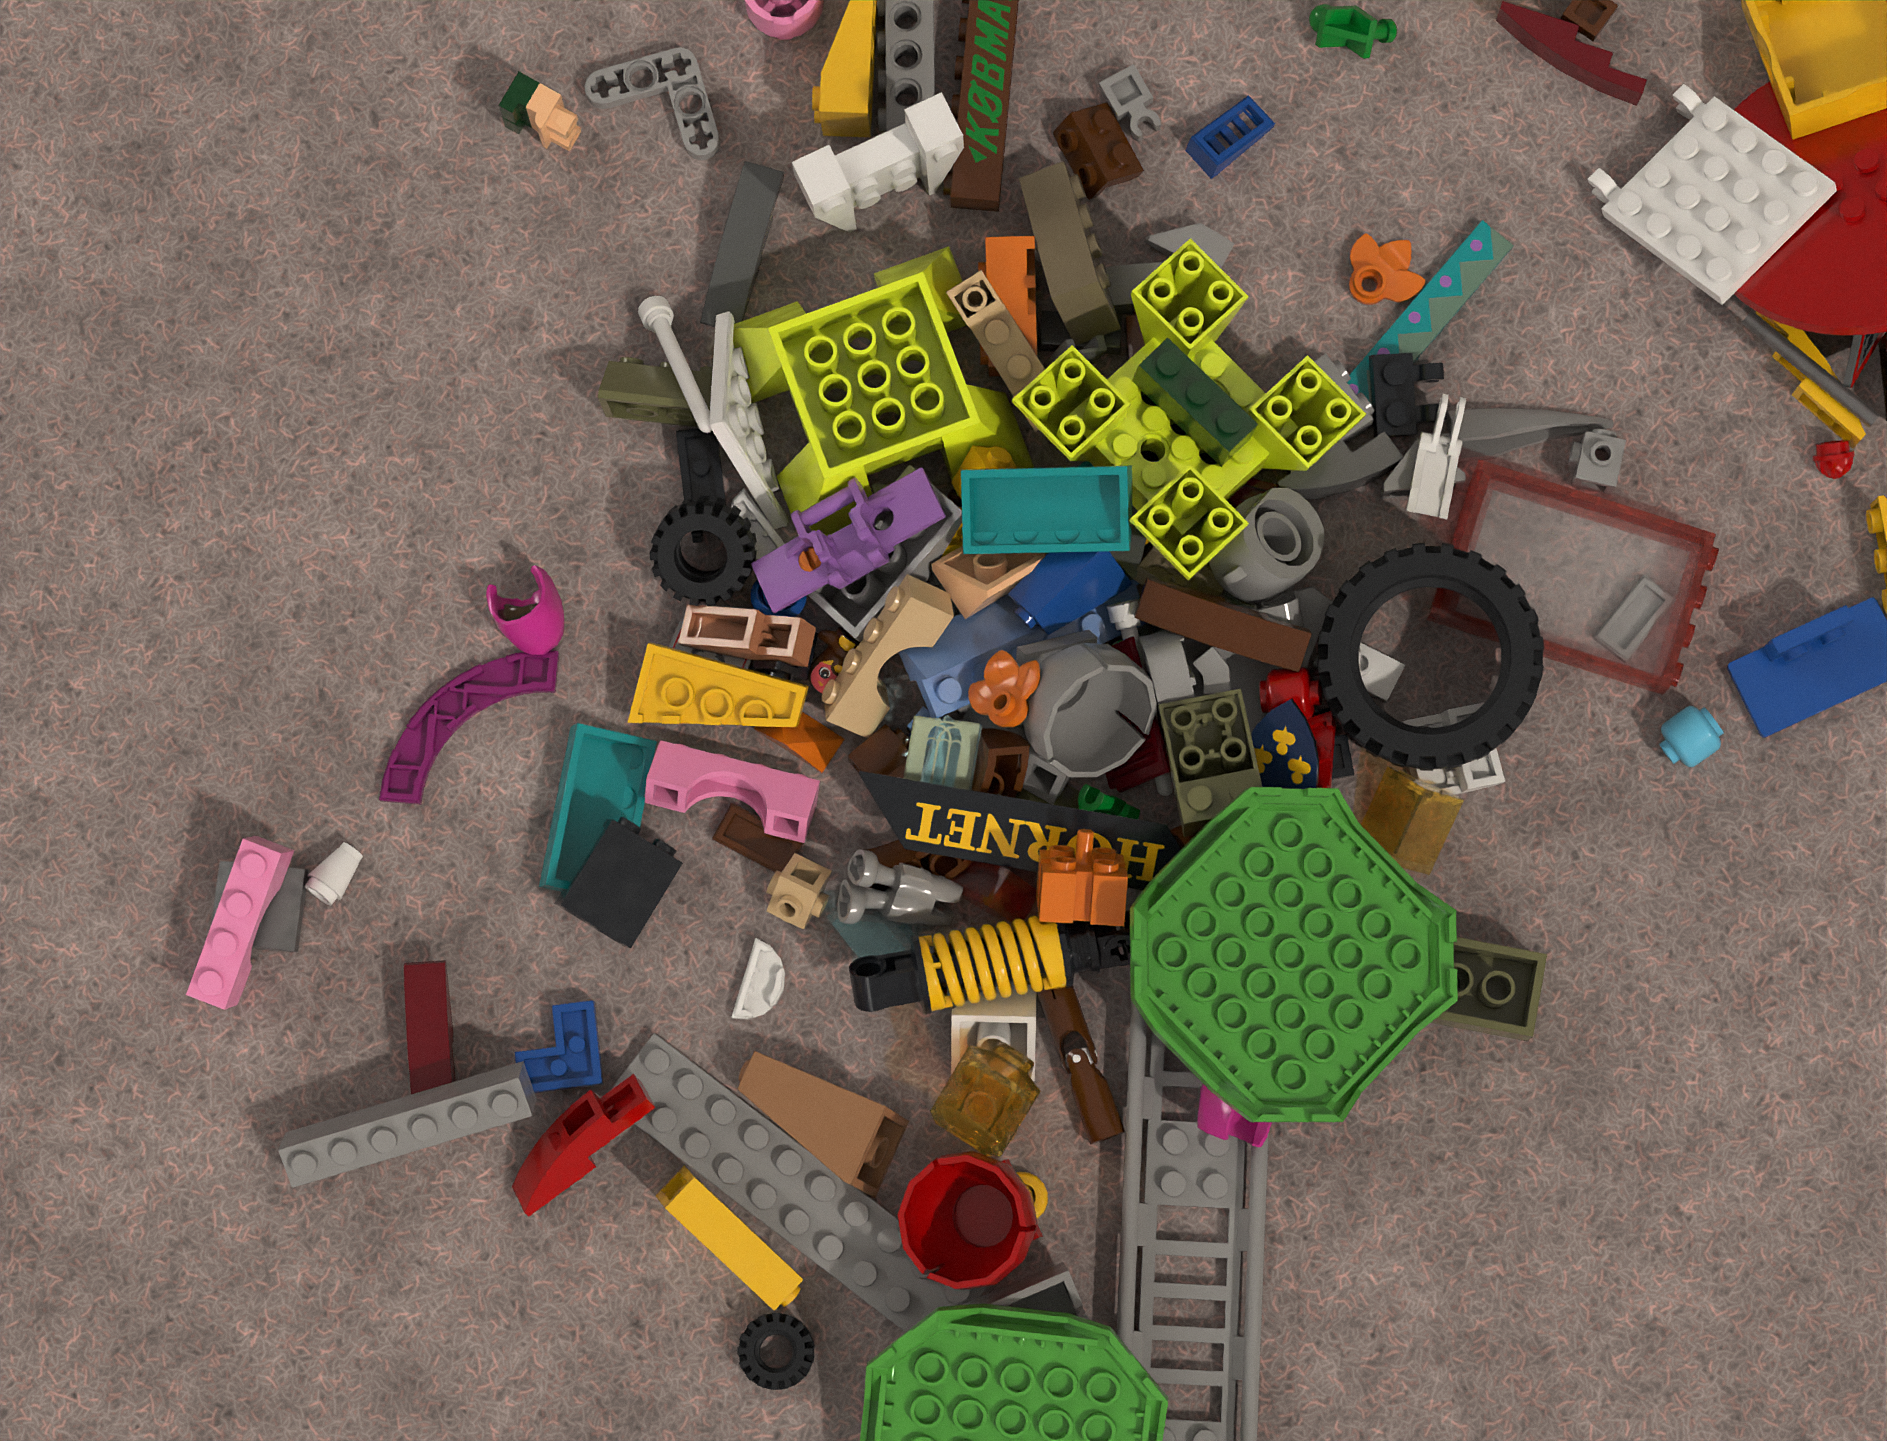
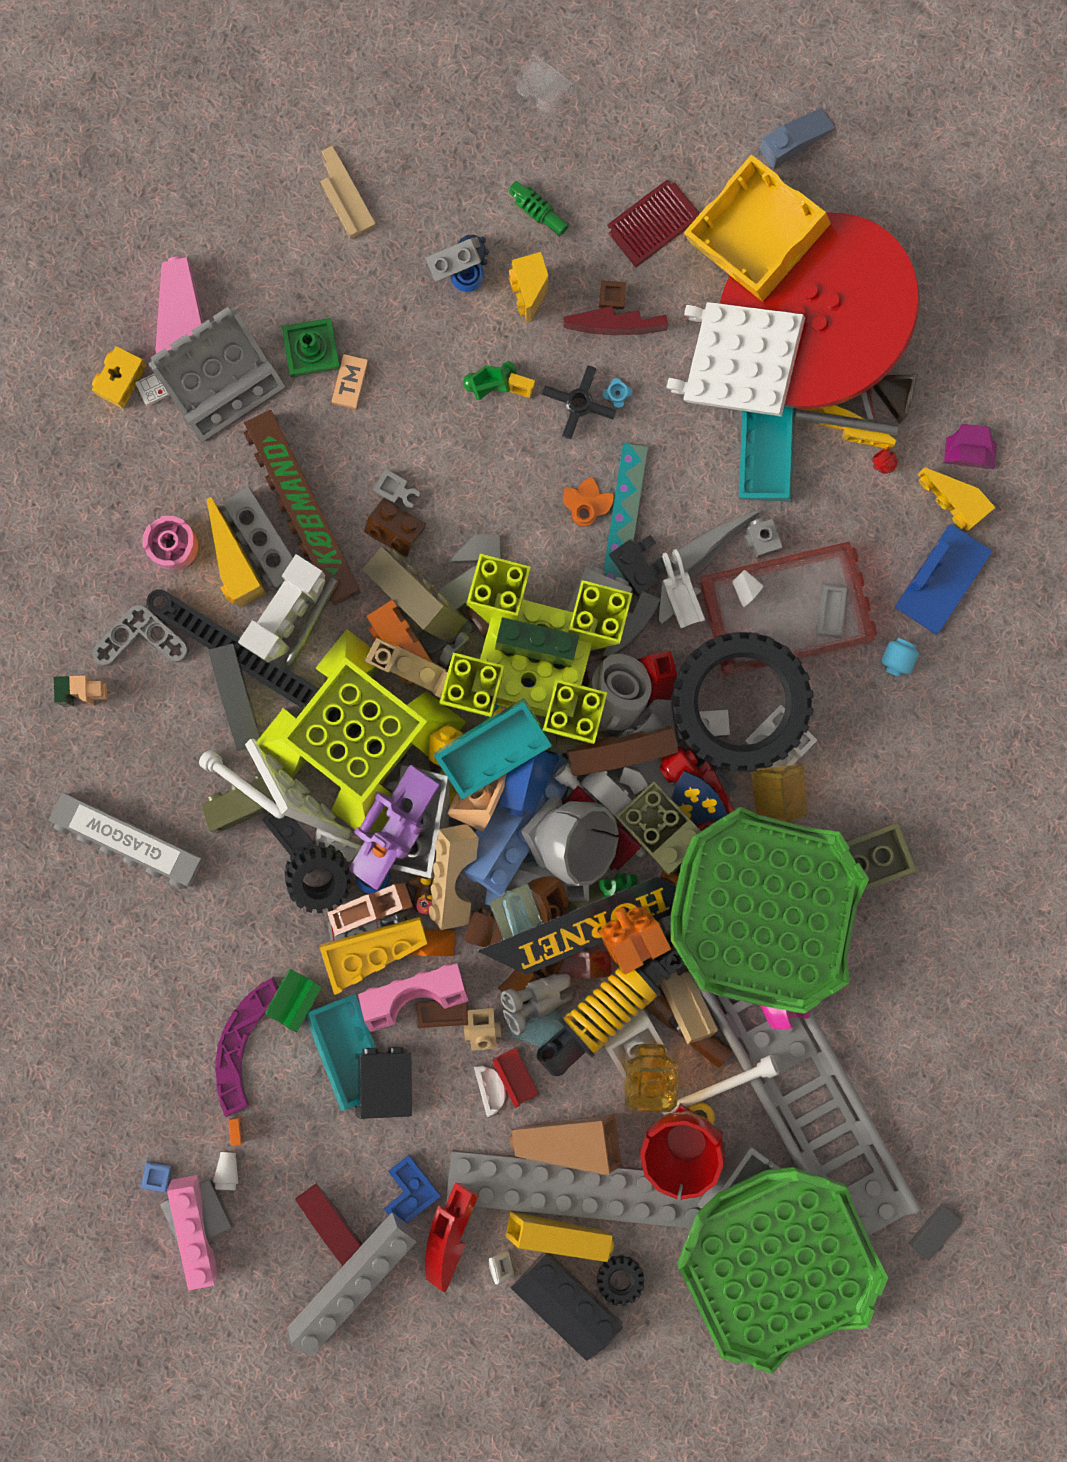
camera: 35 degrees left, 5 degrees up
(236, 822) = (156, 1177): none -> medium blue tile
(382, 825) = (236, 1131): none -> orange tile
(478, 350) = (125, 839): none -> brick
(533, 623) = (248, 971): dark pink piece -> none
(567, 696) = (293, 1000): none -> green panel
(616, 1228) = (495, 1267): none -> white slope
(680, 1339) = (567, 1306): none -> black slope
(792, 214) = (269, 673): none -> black gear
(803, 986) = (515, 1077): none -> red panel
(907, 206) = (311, 621): none -> flat silver bar
(1005, 689) = (528, 858): orange plate -> none
(1100, 1031) = (688, 1007): none -> tan piece
(1156, 1179) = (765, 1068): none -> white piece
(1211, 154) = (453, 495): blue slope -> none
(1342, 554) = (661, 674): none -> red slope
(1388, 61) = (521, 385): none -> yellow tile
(1454, 115) = (581, 392): none -> black bar
(1520, 138) = (617, 385): none -> medium azure plate
(1532, 511) = (746, 587): none -> white slope
(1673, 354) = (767, 456): none -> teal slope

